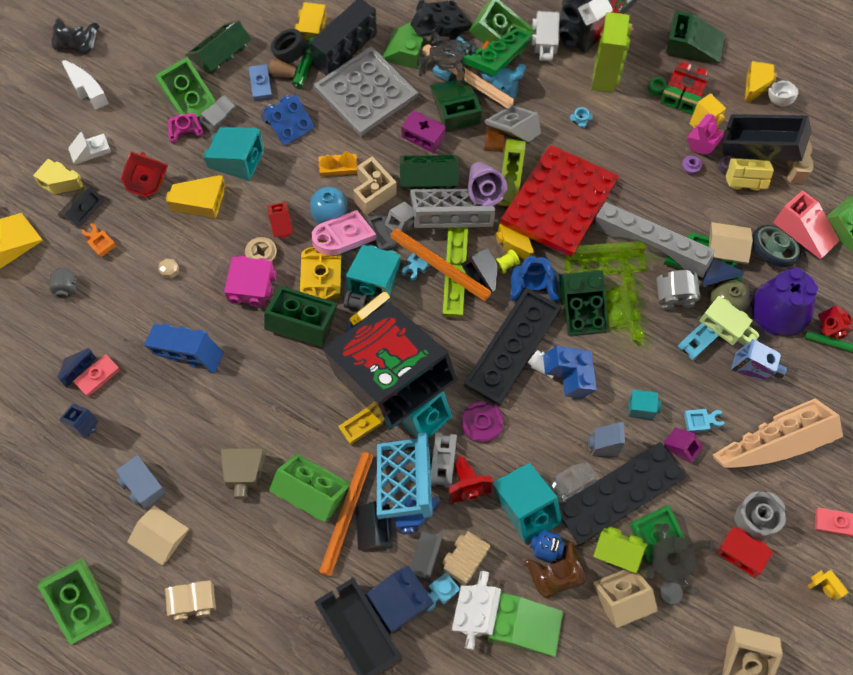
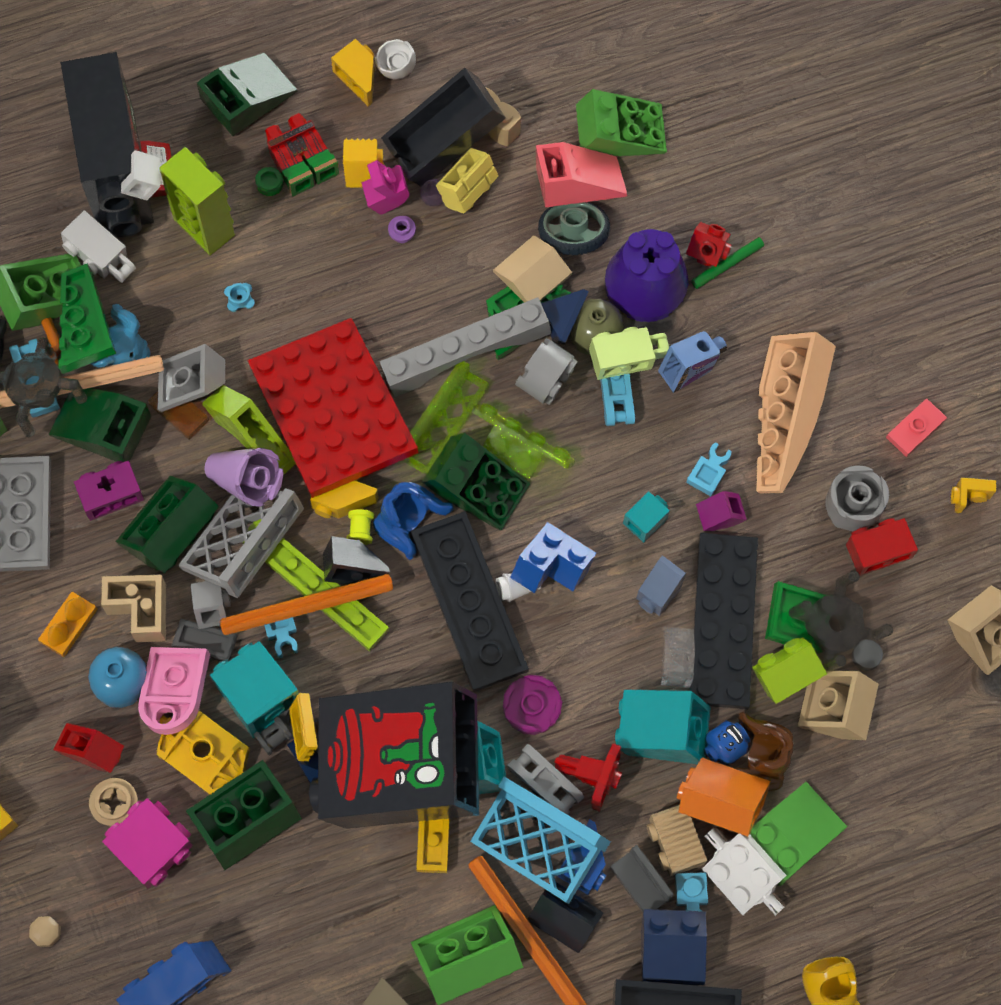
camera: 55 degrees left, 5 degrees up
(511, 564) = (723, 796): none -> orange brick

